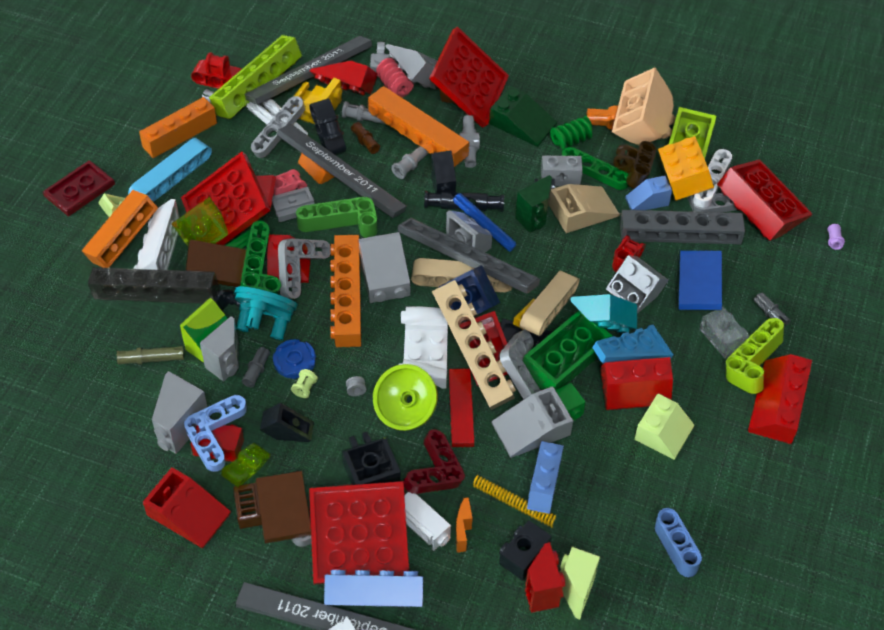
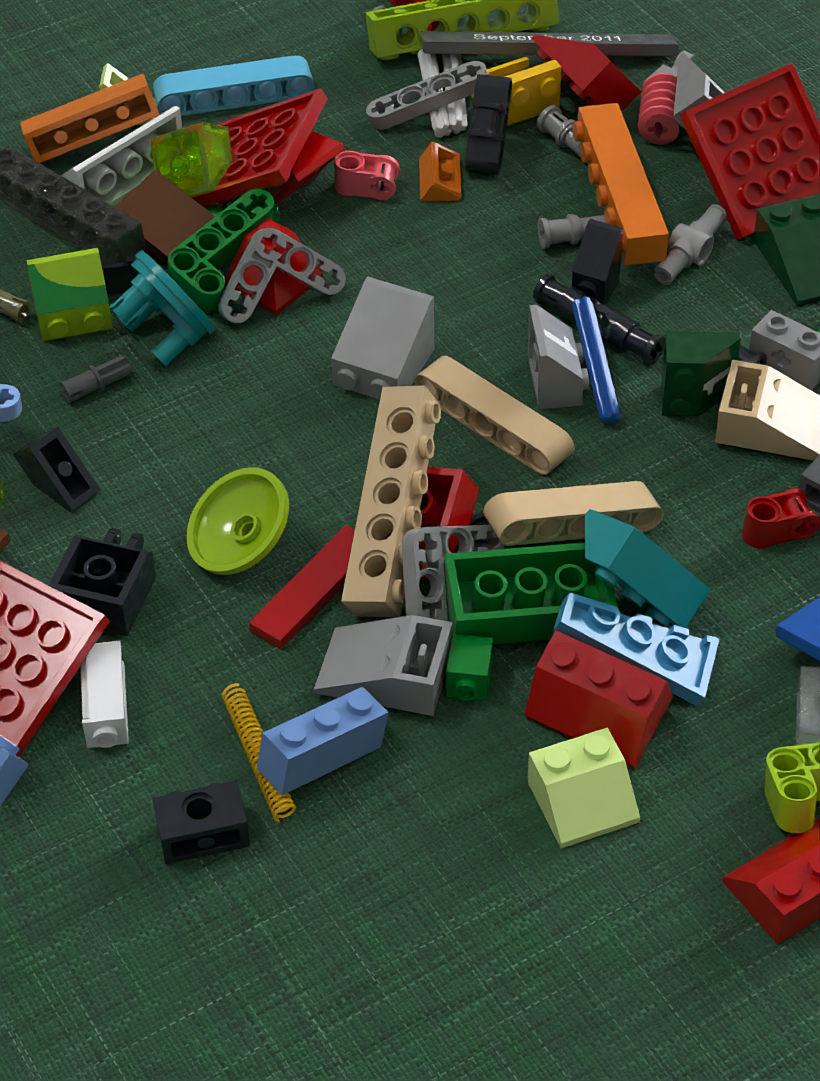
camera: 40 degrees right, 5 degrees down
(78, 188) = (86, 53): dark red tile -> none
(178, 127) = (308, 34): orange brick -> none
(221, 350) = (68, 327): light grey slope -> none
(288, 202) = (352, 204): light grey plate -> none
(293, 357) = (156, 398): blue tile -> none
(299, 385) = (132, 432): yellowish green bush -> none
(337, 214) = (399, 245): bright green beam -> none
(341, 170) = (460, 194): dark grey tile -> none
(347, 291) = (295, 357): orange brick -> none
(356, 386) = (195, 474): light grey bush -> none
(365, 137) = (541, 168): reddish brown pin -> none
(426, 341) = (331, 488): white piece -> none
(436, 445) = (201, 648): dark red beam -> none
(464, 522) = (154, 729): orange slope -> none
(469, 255) = (521, 390): dark grey tile -> none
(478, 289) = (474, 437): dark blue slope -> none
(544, 581) = (173, 870): red slope -> none
(579, 574) = (222, 906): yellowish green slope -> none
(637, 282) = (751, 566): light grey slope -> none
(678, 552) = (430, 975): medium blue beam -> none

